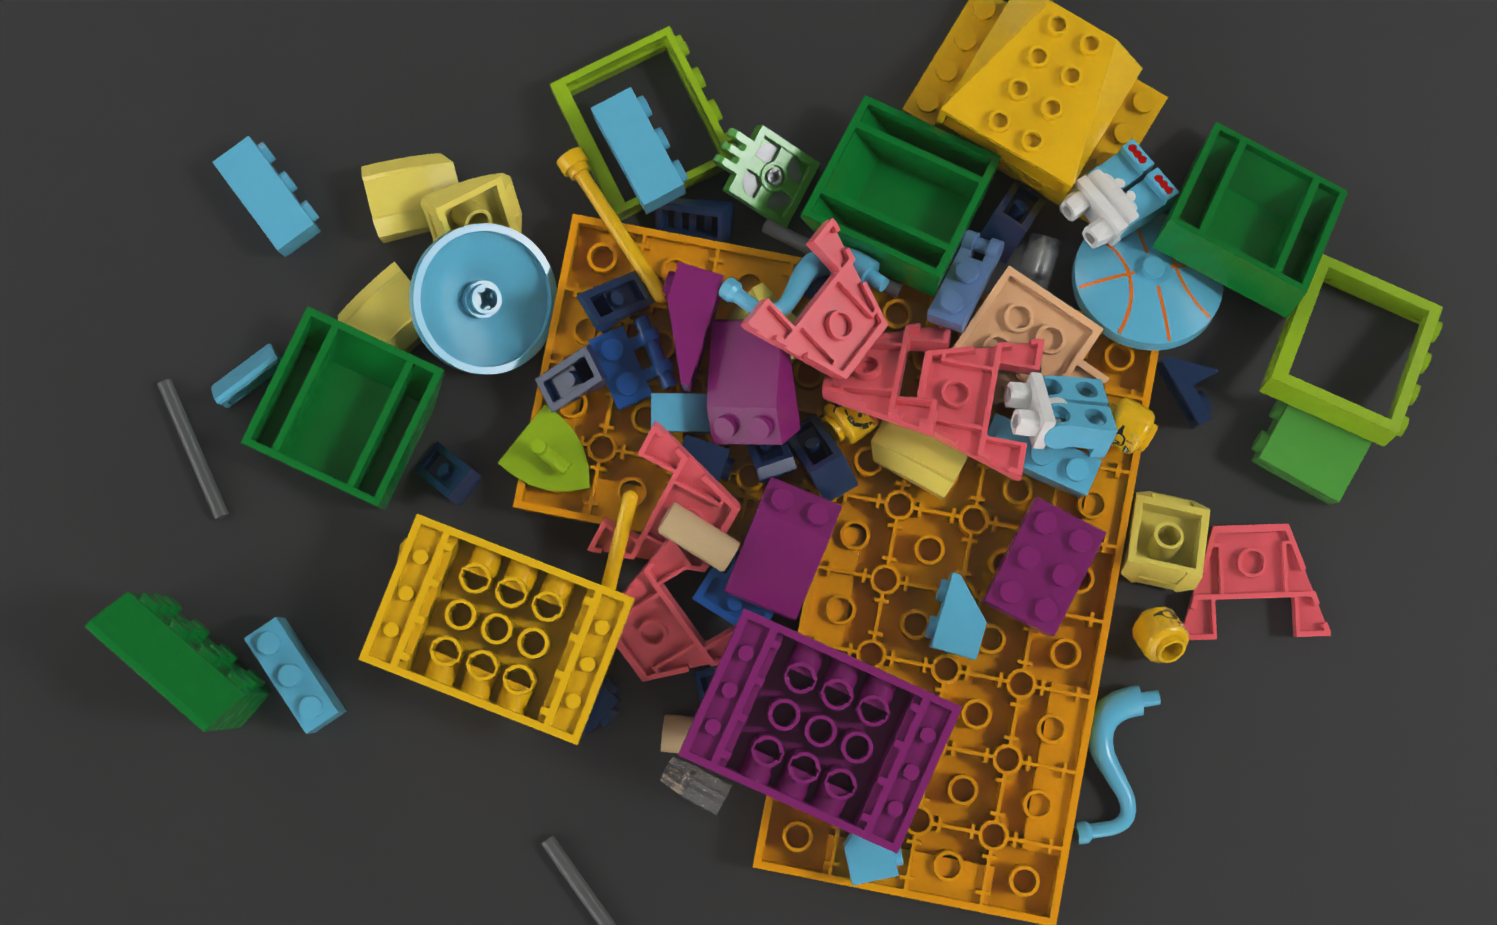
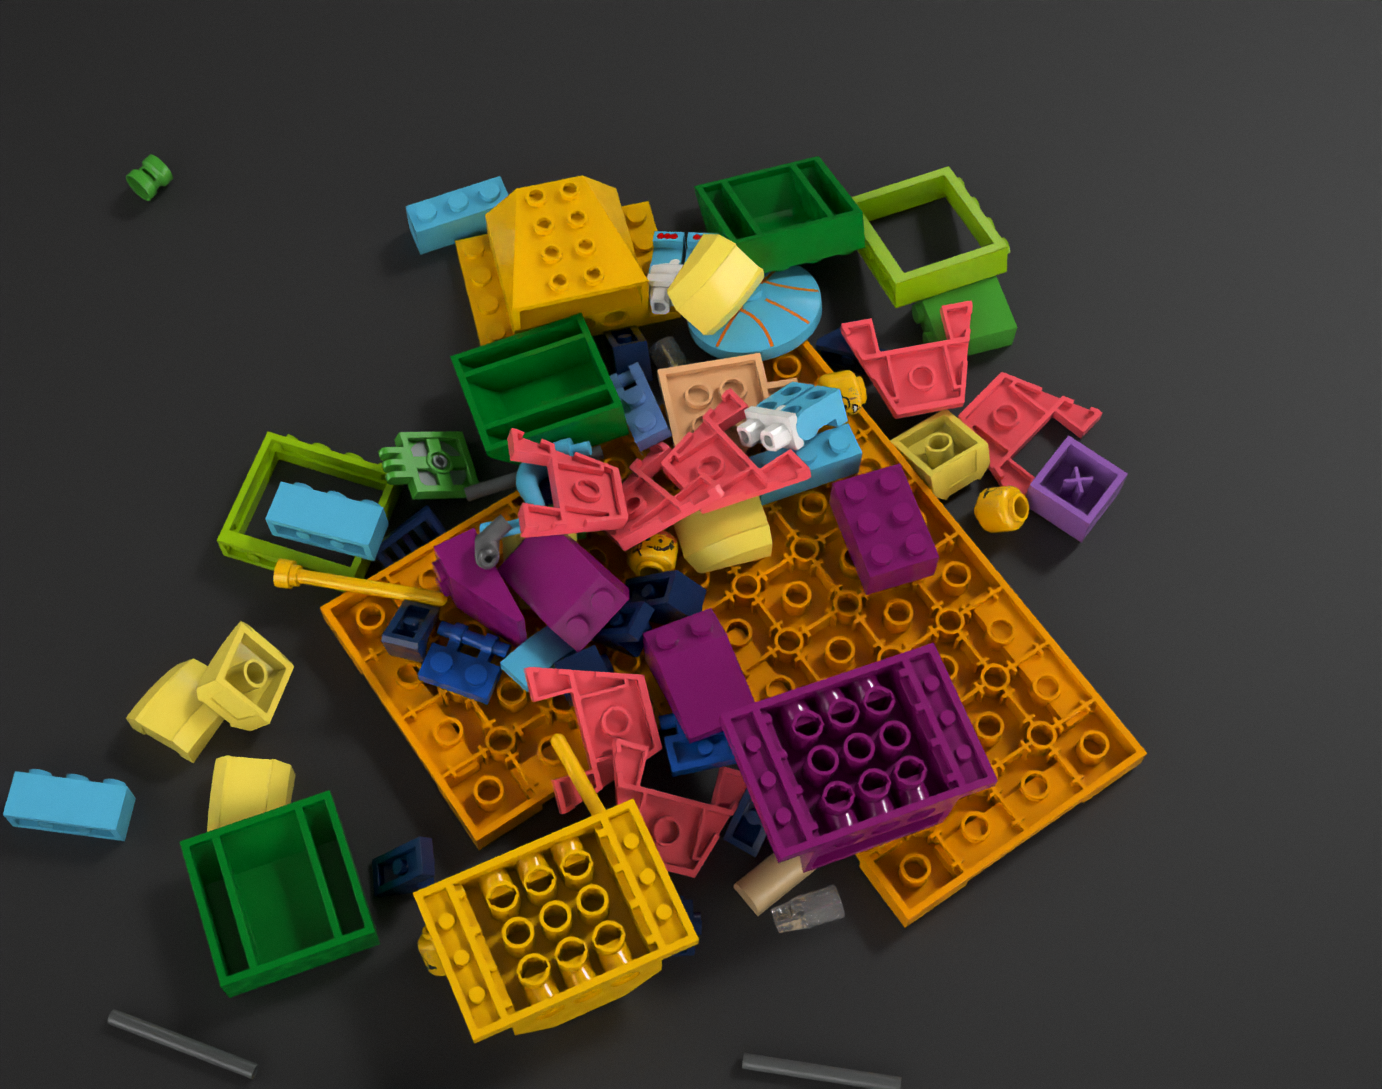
camera: 50 degrees left, 20 degrees down
(246, 376) = (177, 948): medium azure slope -> none
(482, 298) = (310, 721): medium azure dish -> none
(548, 455) = (467, 780): lime shield -> none
(572, 379) = (433, 704): dark blue slope -> none
(698, 537) = (634, 717): tan brick -> none
(717, 301) = (488, 543): none -> flat silver arm
(869, 861) = (977, 822): medium azure slope -> none
(959, 620) = (867, 613): medium azure slope -> none
(1108, 714) = (1026, 582): medium azure animal -> none
(1118, 239) = (714, 283): none -> light yellow slope
(1215, 468) = (917, 376): none -> coral wing
(1235, 676) = (1075, 488): none -> medium lavender brick

